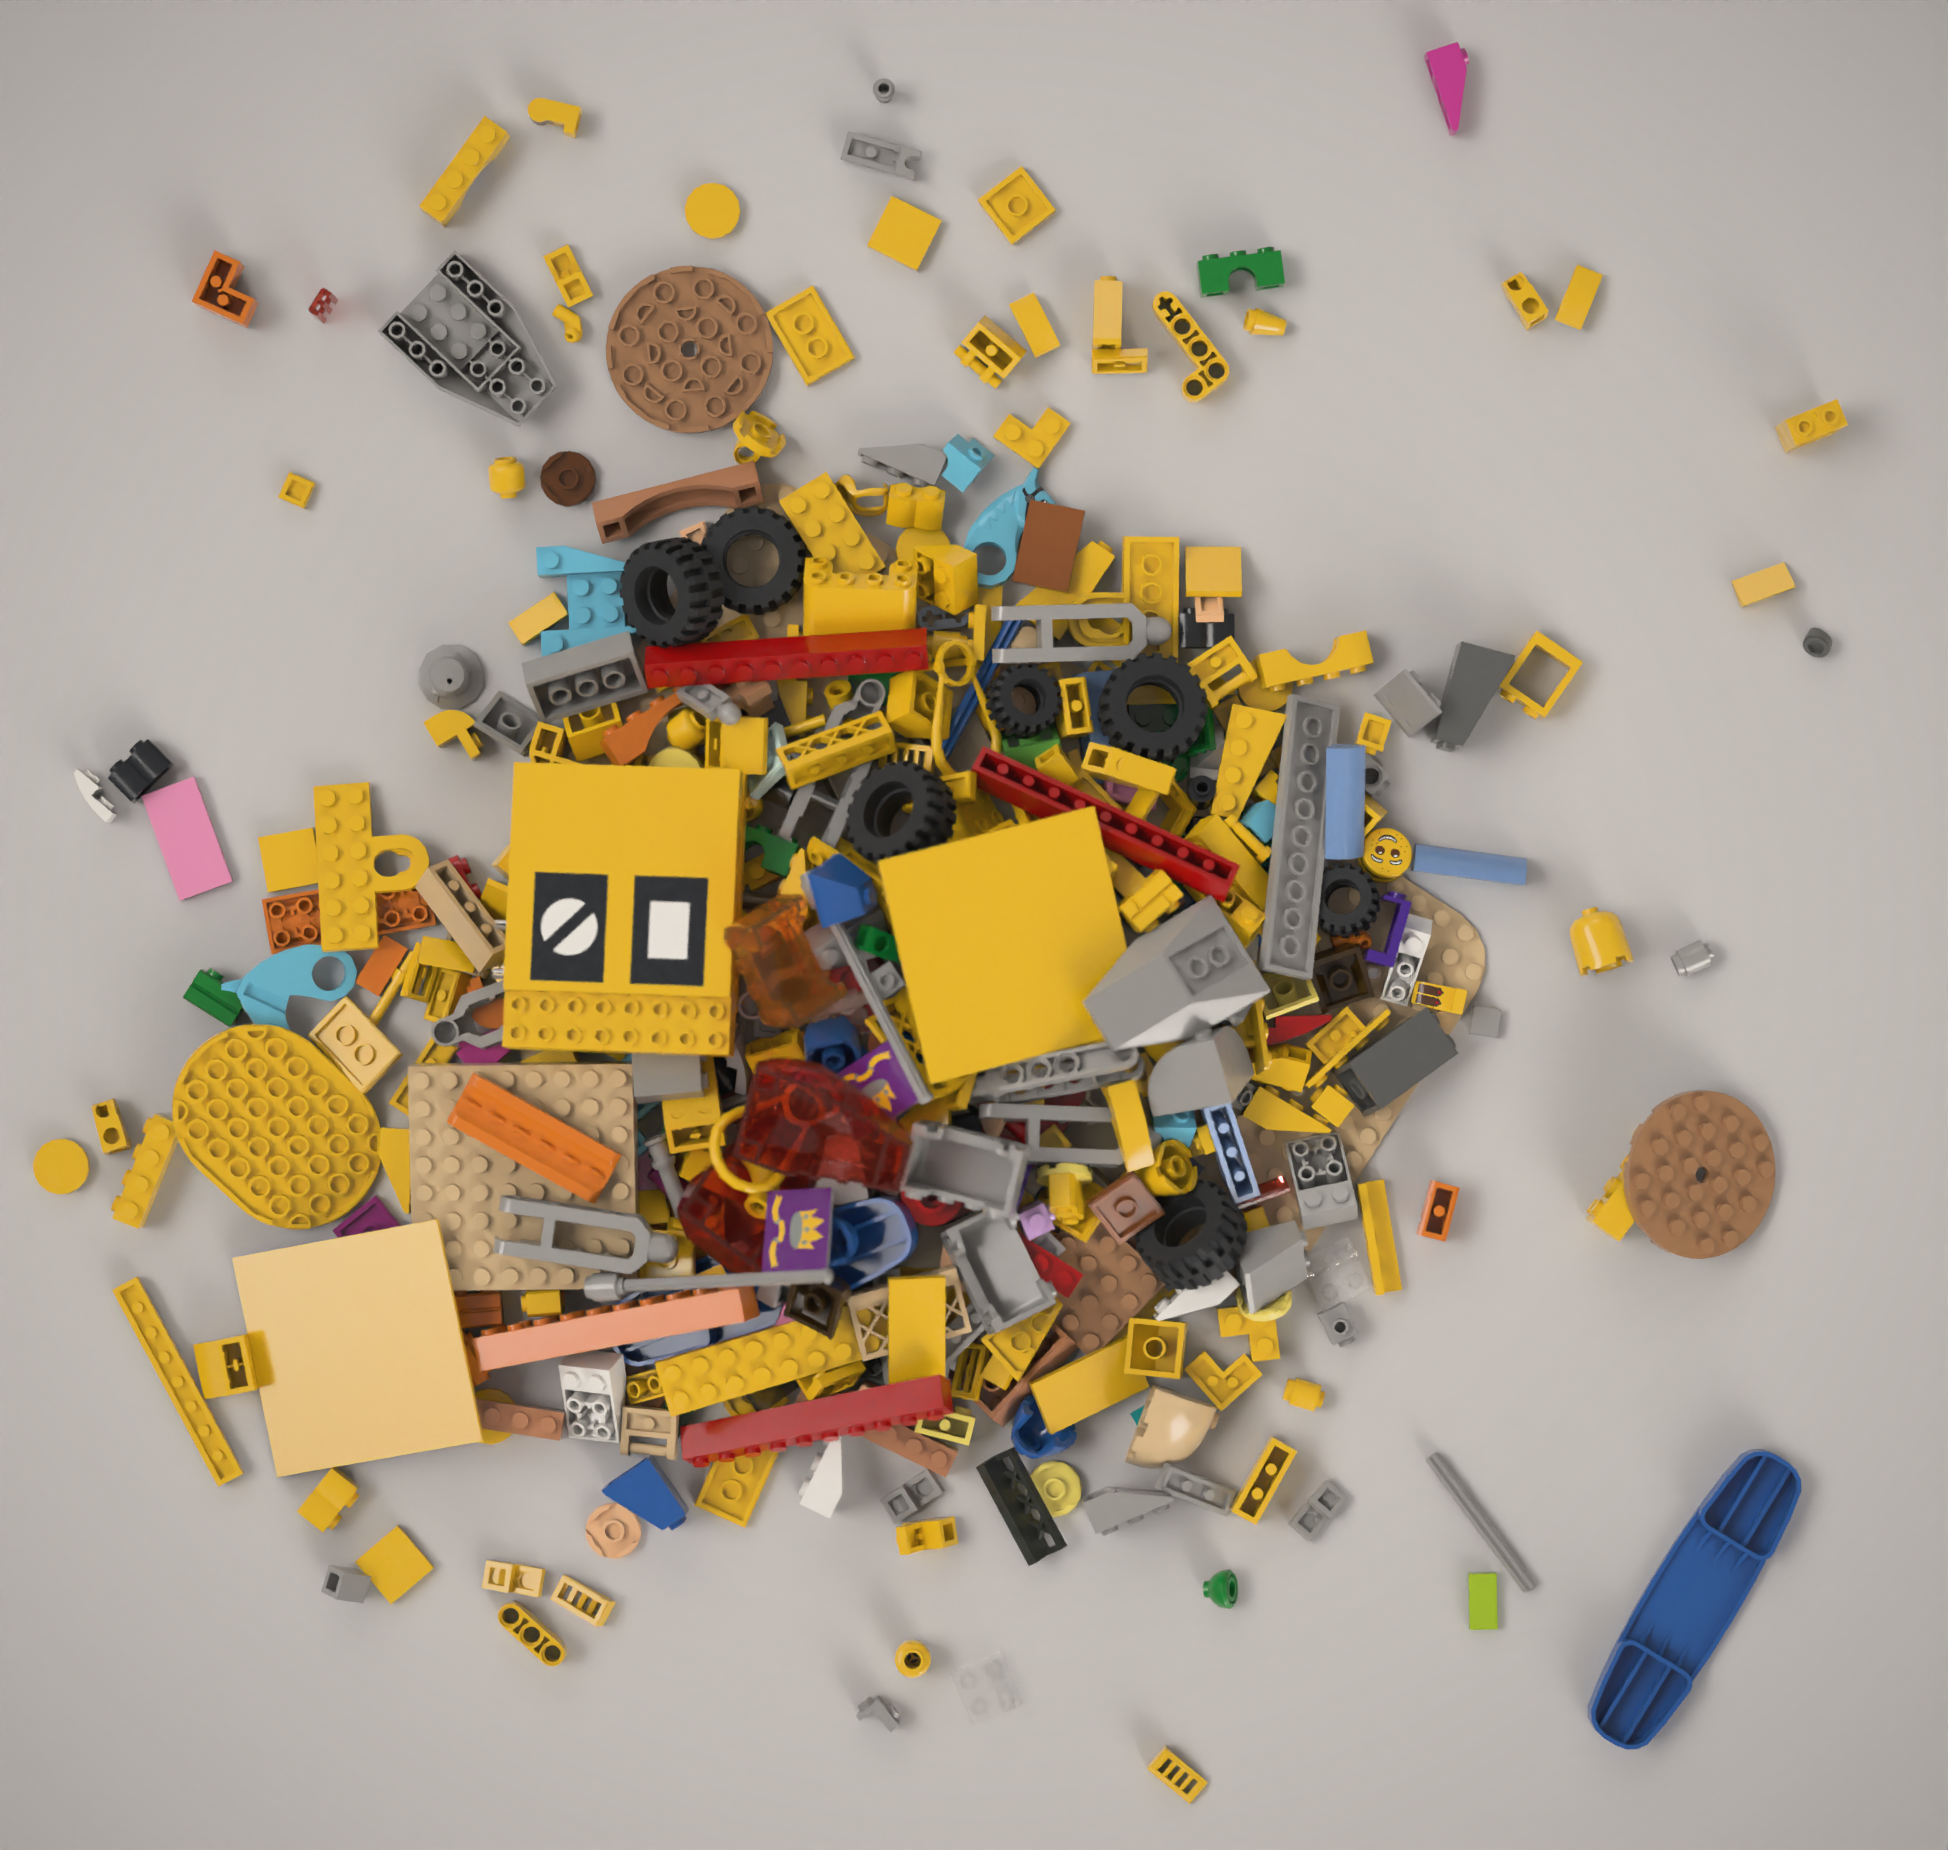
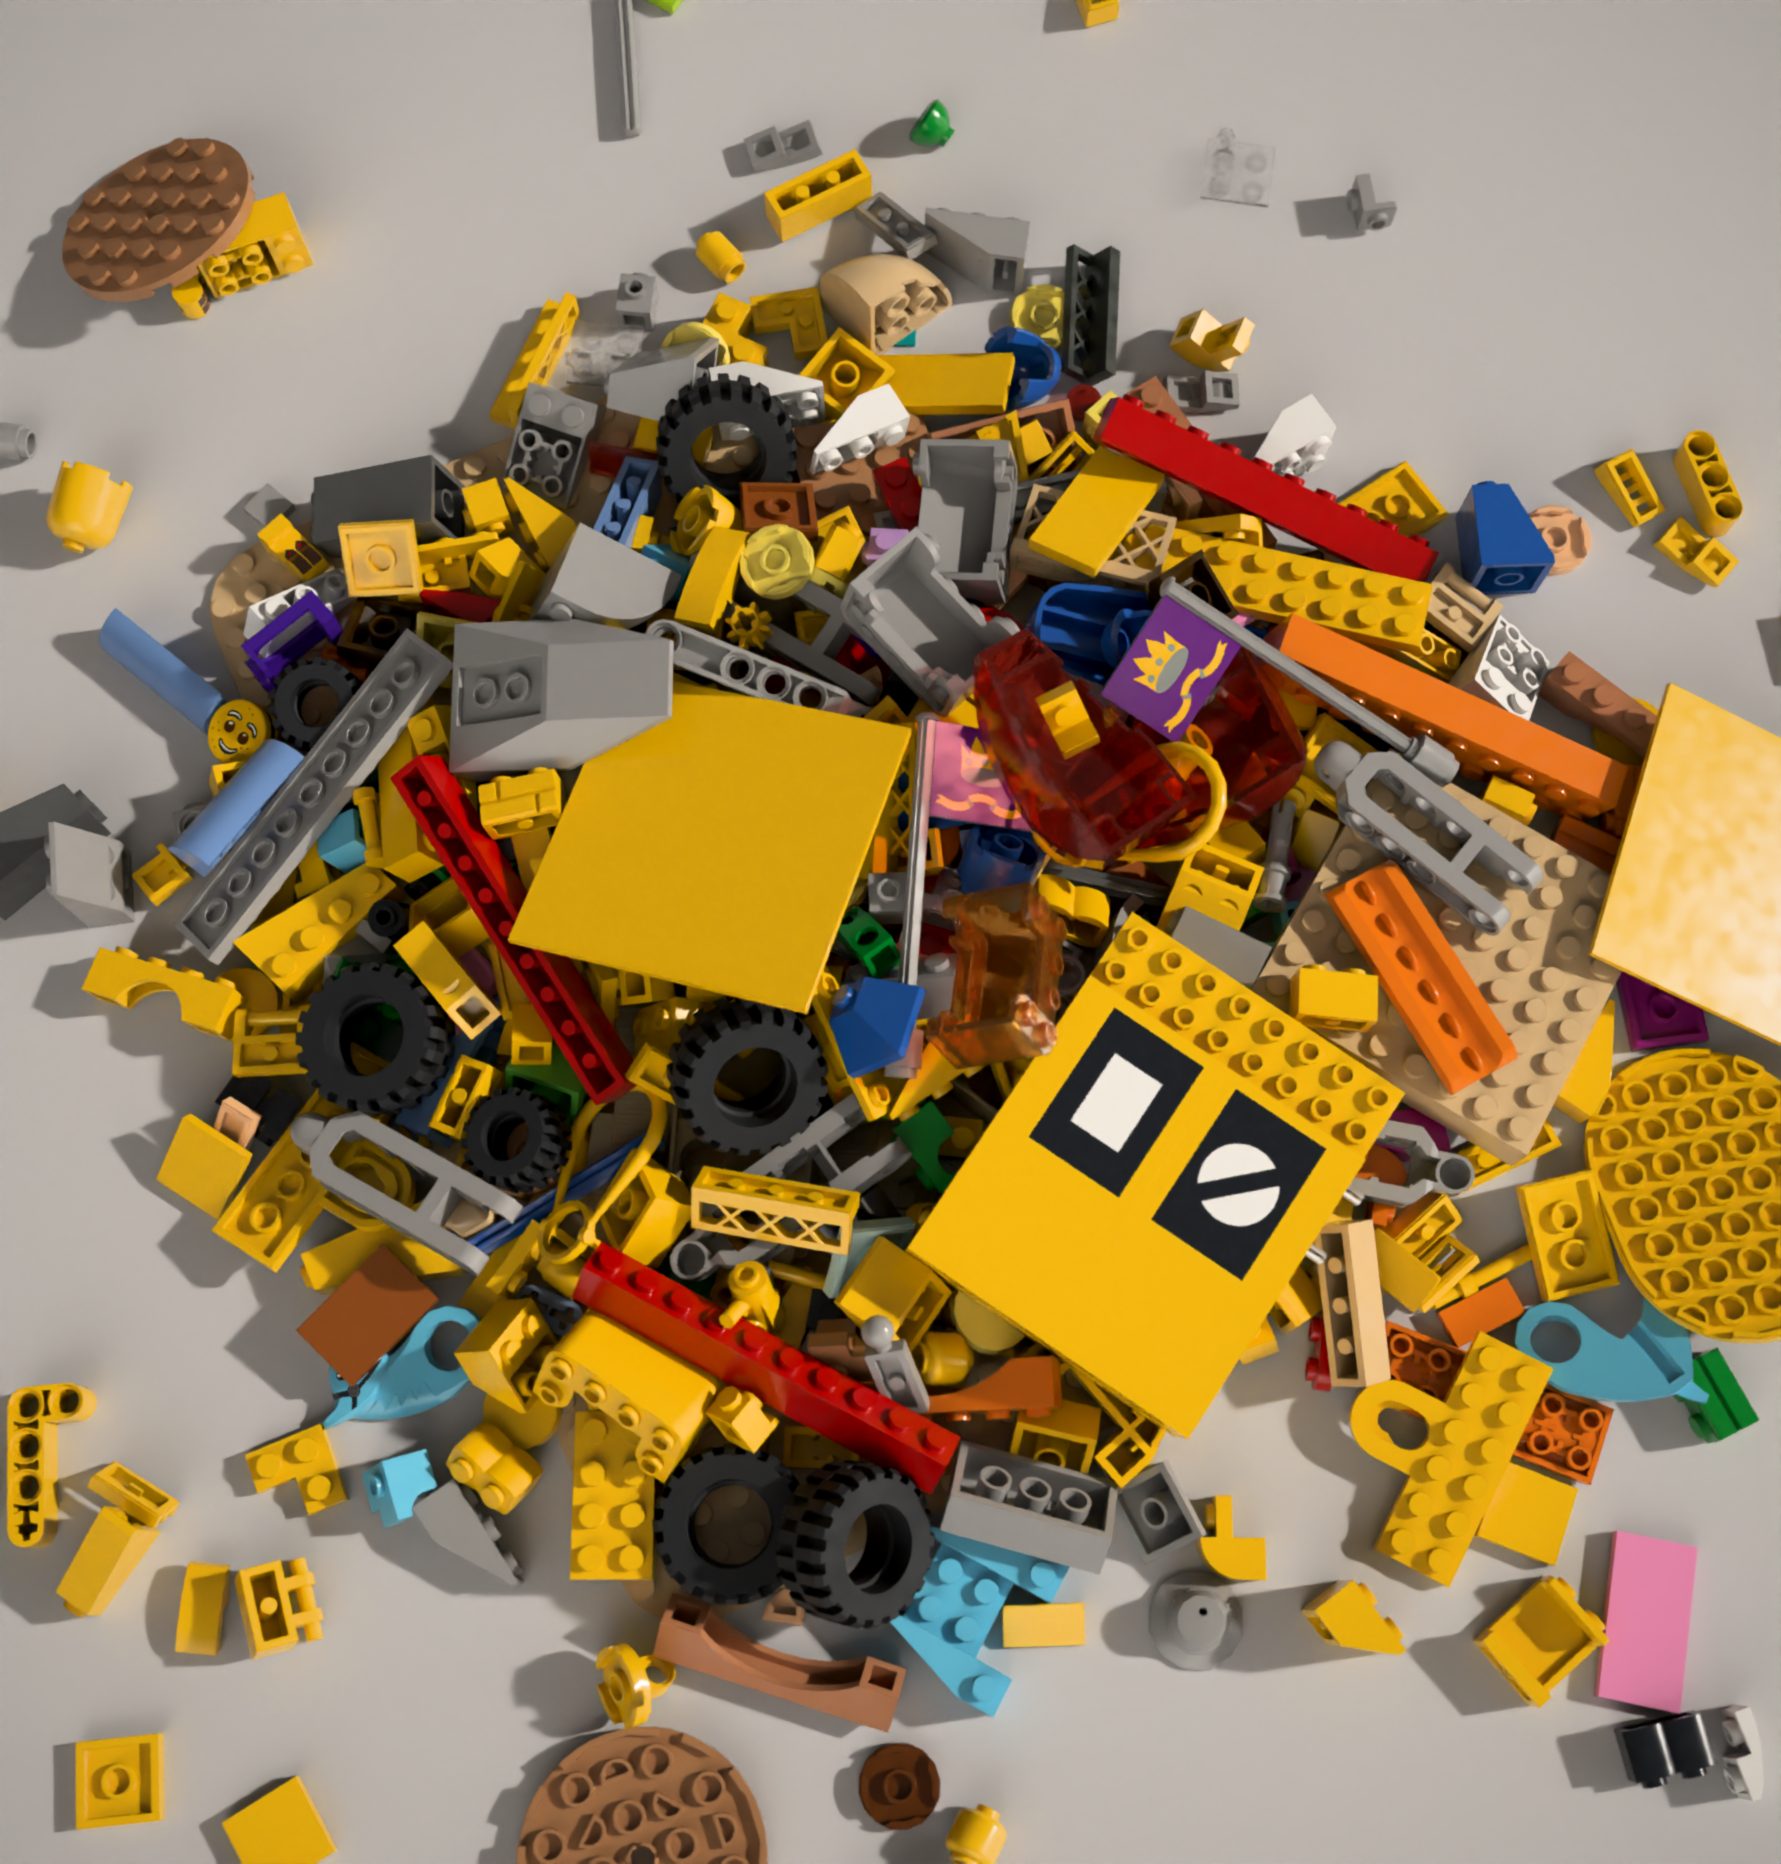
camera: 145 degrees left, 15 degrees down
(243, 789) = (1541, 1639): none -> yellow panel
(362, 727) = (1348, 1619): none -> yellow slope
(578, 1086) = (1334, 998): none -> yellow brick
(781, 620) = (741, 1419): none -> yellow brick
(809, 335) = (482, 1778): yellow tile -> none
(817, 693) = (754, 1298): none -> yellow piece
(835, 1147) = (1068, 720): none -> yellow slope
(847, 489) = (559, 1540): yellow piece -> none
(905, 1665) = (1300, 232): yellow head -> none
(929, 762) = (677, 1158): yellow slope -> none
(988, 1439) = (1081, 399): none -> clear red tile
(1077, 1106) = (741, 619): none -> yellow gear
(1096, 1161) = (777, 561): none -> light yellow tile
(1113, 1314) = (867, 424): none -> white slope
(1369, 1021) = (380, 558): none -> yellow tile
(1437, 1210) = (453, 345): orange brick -> none

